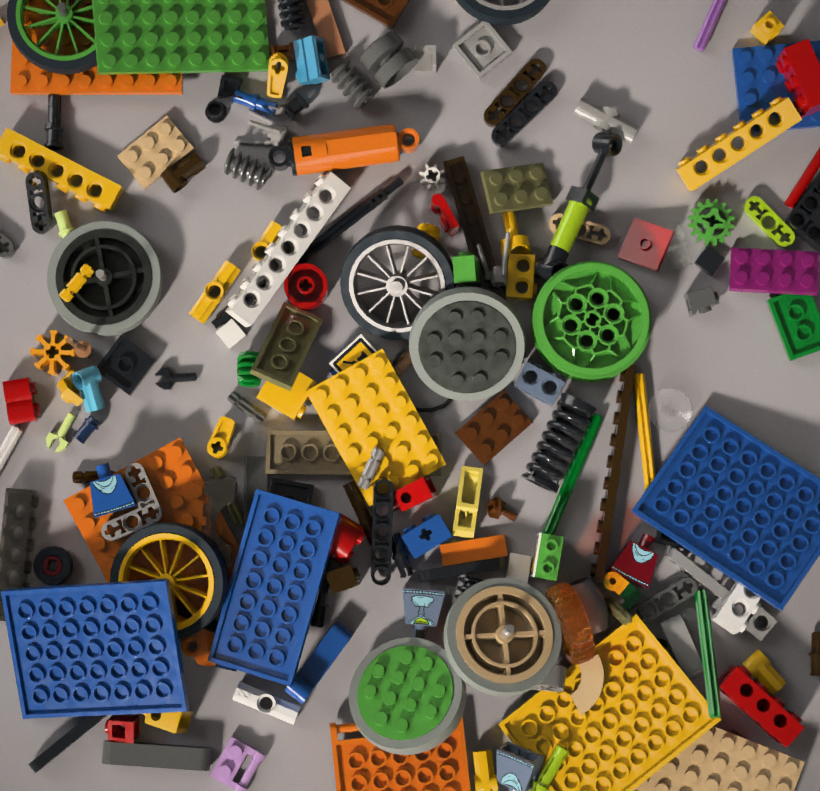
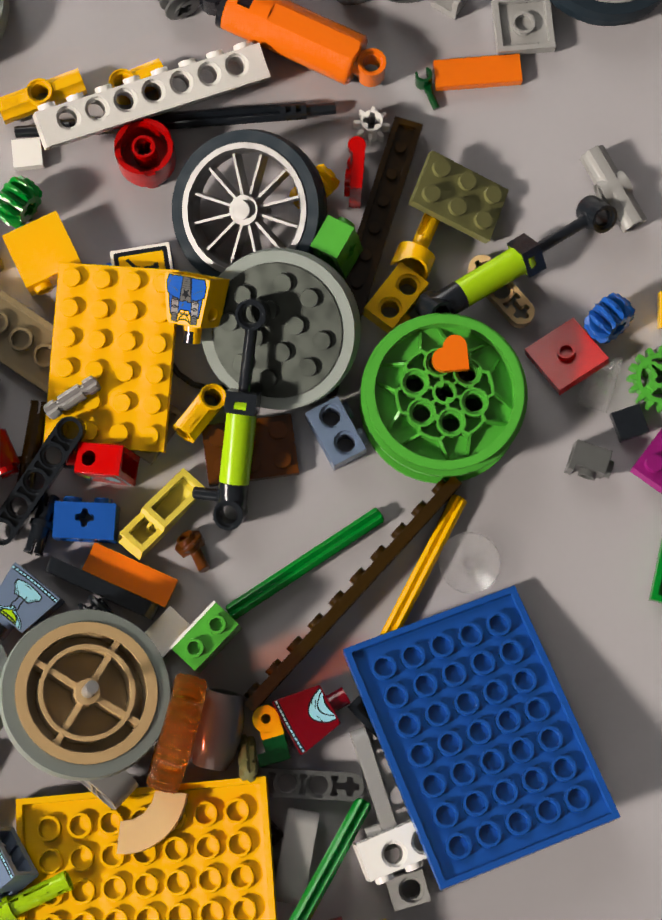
camera: 30 degrees right, 5 degrees down
(286, 346) = (74, 201): olive plate -> none
(406, 362) = (194, 302): none -> torso
(447, 128) = (426, 85): none -> dark green hand
(450, 426) = (199, 413): none -> yellow piece
(473, 98) = (477, 72): none -> orange tile
(483, 420) = (240, 424): none -> black piece
(498, 275) = (371, 278): light grey plant -> none
(512, 91) = (529, 98): dark brown beam -> none
(525, 115) = (522, 121): black beam -> none
(535, 469) = (302, 511): black piece -> none
(583, 294) = (452, 355): none -> orange tile
(657, 205) = (609, 318): none -> blue gear

